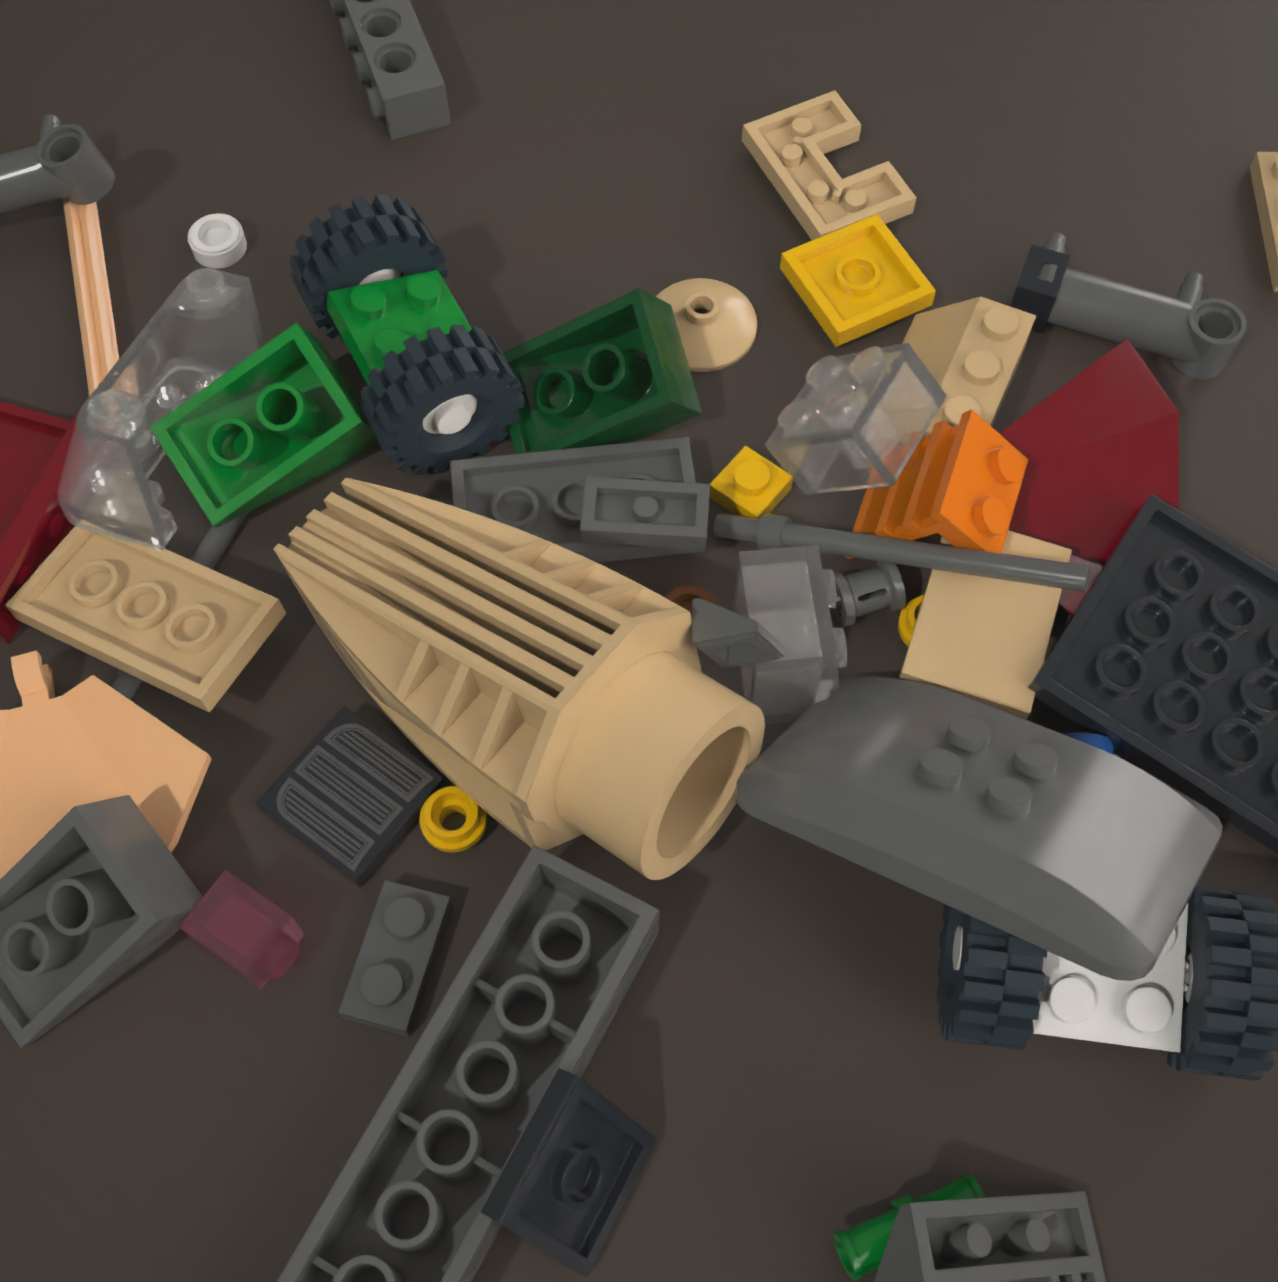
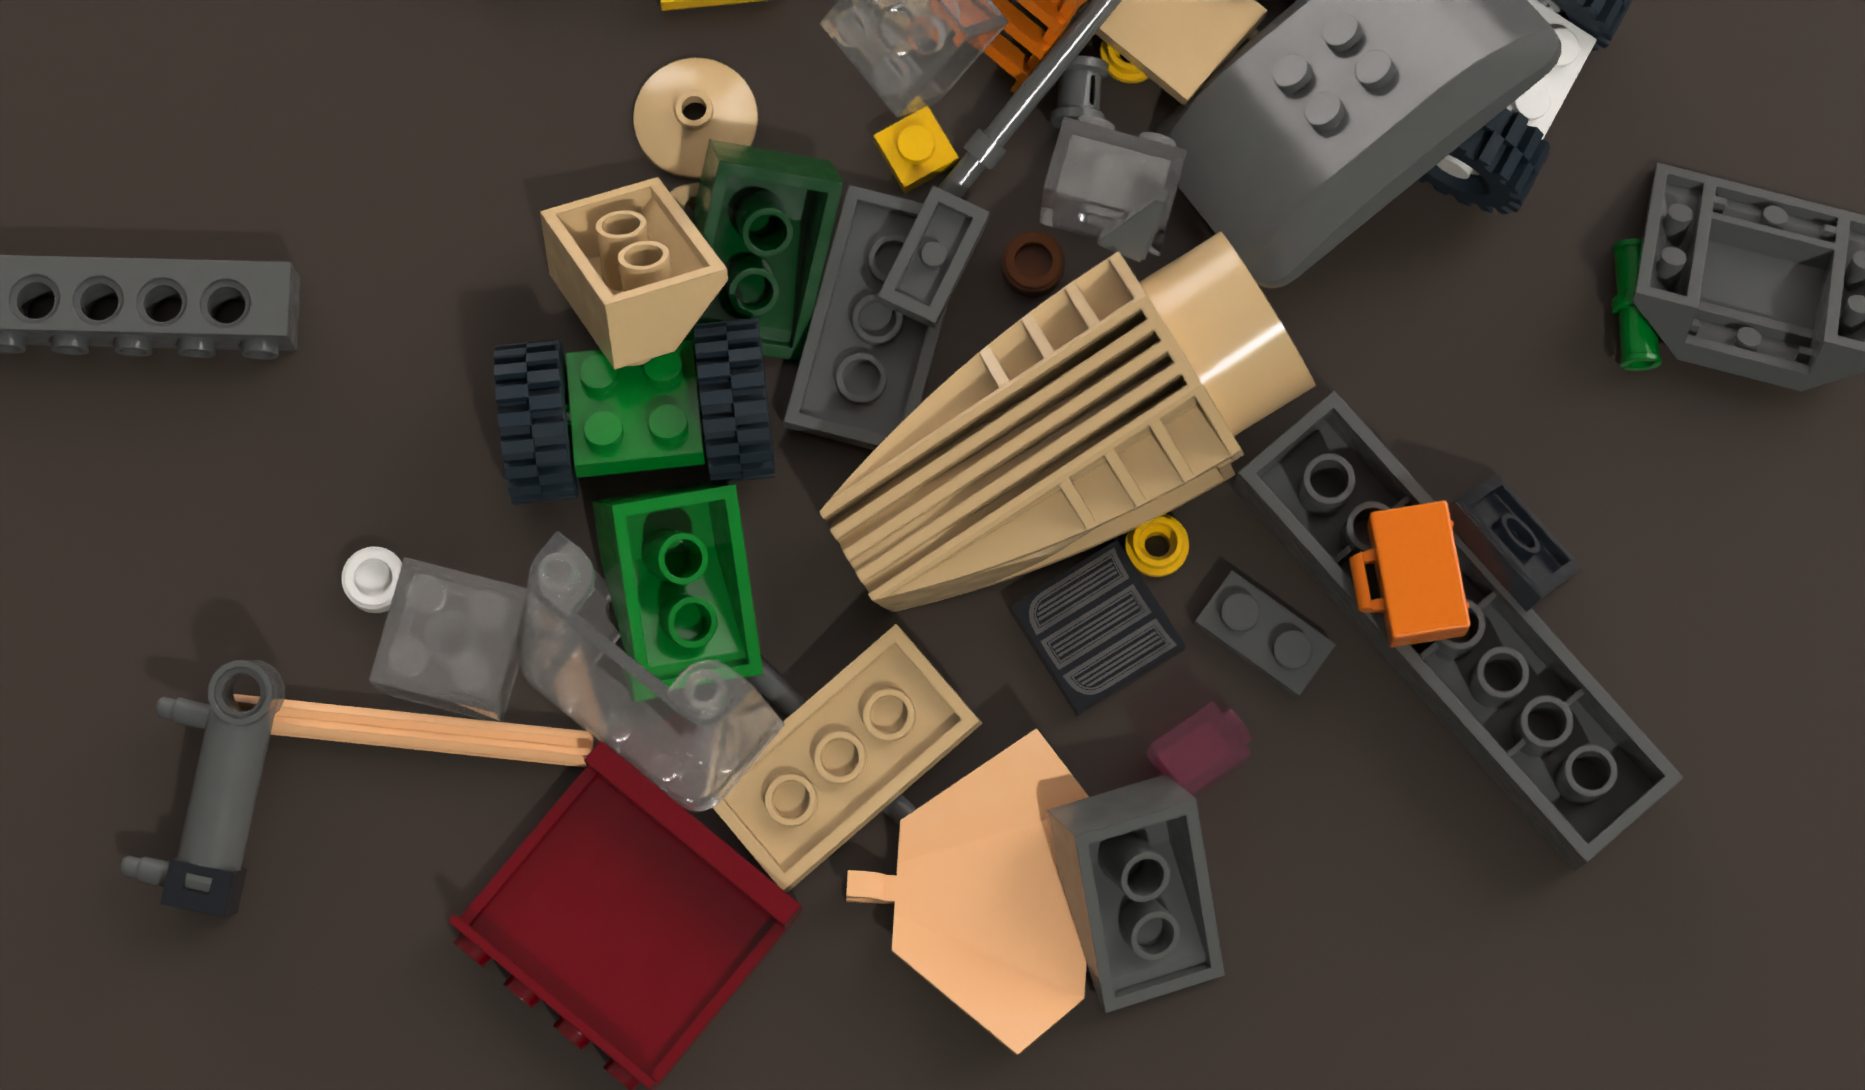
camera: 70 degrees left, 15 degrees up
(147, 267) = (451, 641): none -> clear brick
(475, 1062) = (1414, 574): none -> orange piece
(516, 274) = (632, 269): none -> tan slope

